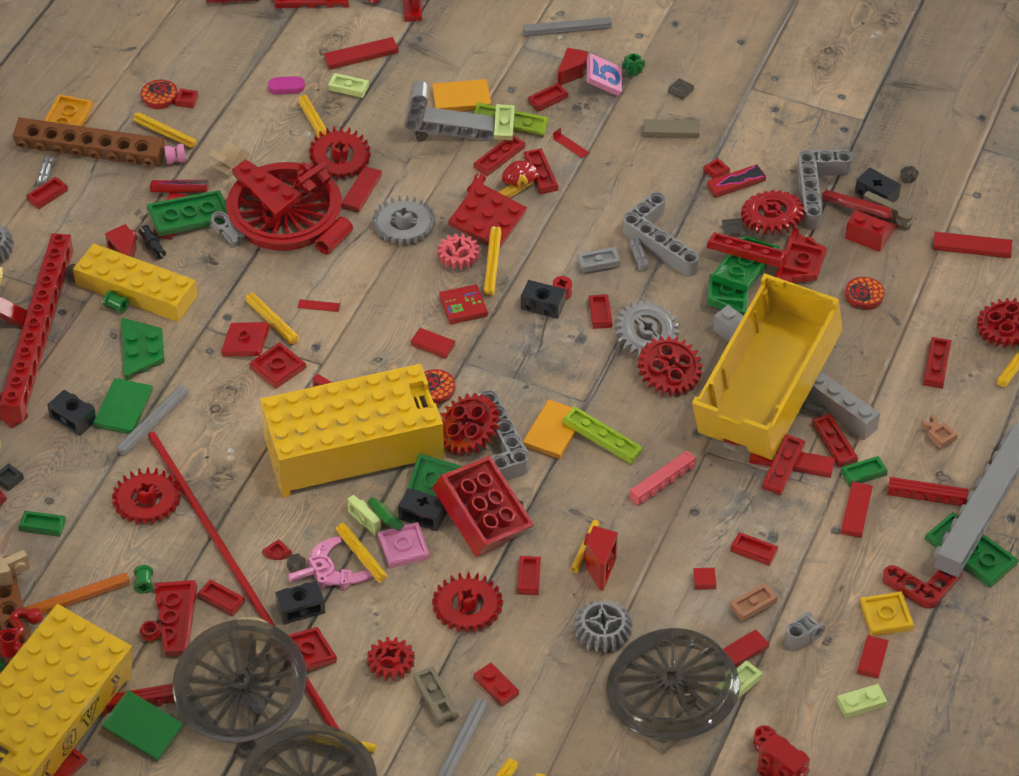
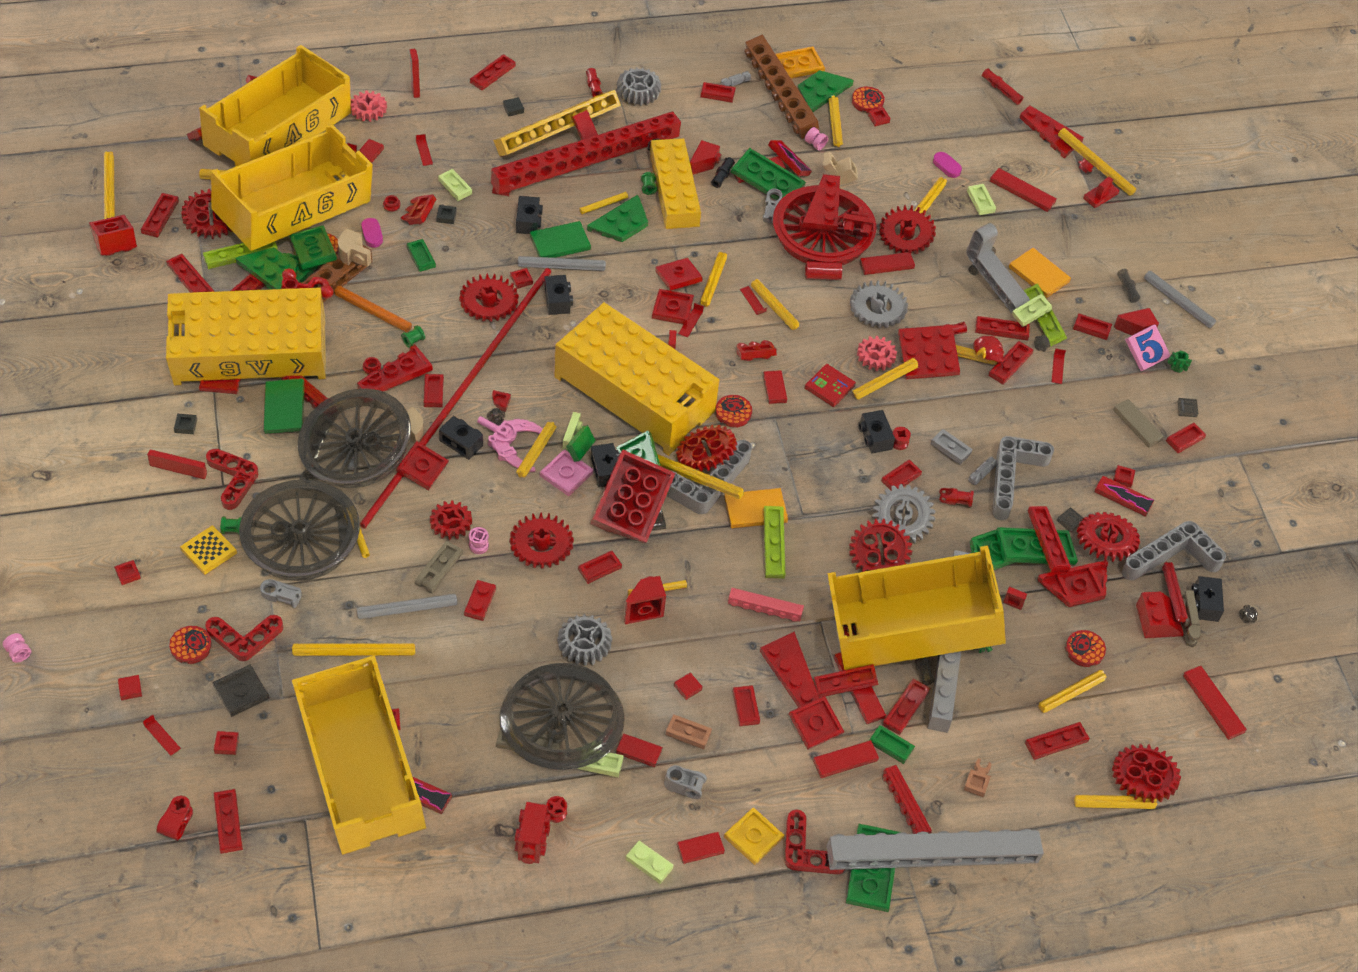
camera: 50 degrees right, 5 degrees up
(106, 349) = (603, 203): none -> yellow piece
(114, 113) = (821, 87): none -> green wing
(142, 459) = (521, 278): none -> red tile
(191, 441) = (557, 294): none -> black brick
(311, 370) = (693, 318): none -> red piece
(340, 291) = (775, 304): none -> yellow axle
(383, 332) = (756, 350): none -> red plate
(431, 649) = (478, 540): none -> bright pink wheel
(505, 442) = (701, 477): none -> yellow axle
(526, 48) = (1128, 285): none -> clear smoke pin
(539, 138) = (1041, 343): none -> clear smoke plate
(653, 286) = (953, 496): none -> red piece
(709, 109) = (1185, 437): none -> red tile
(736, 496) = (791, 668): none -> red wing
(808, 508) = (816, 722): none -> red tile
(899, 325) = (1072, 691): none -> yellow axle

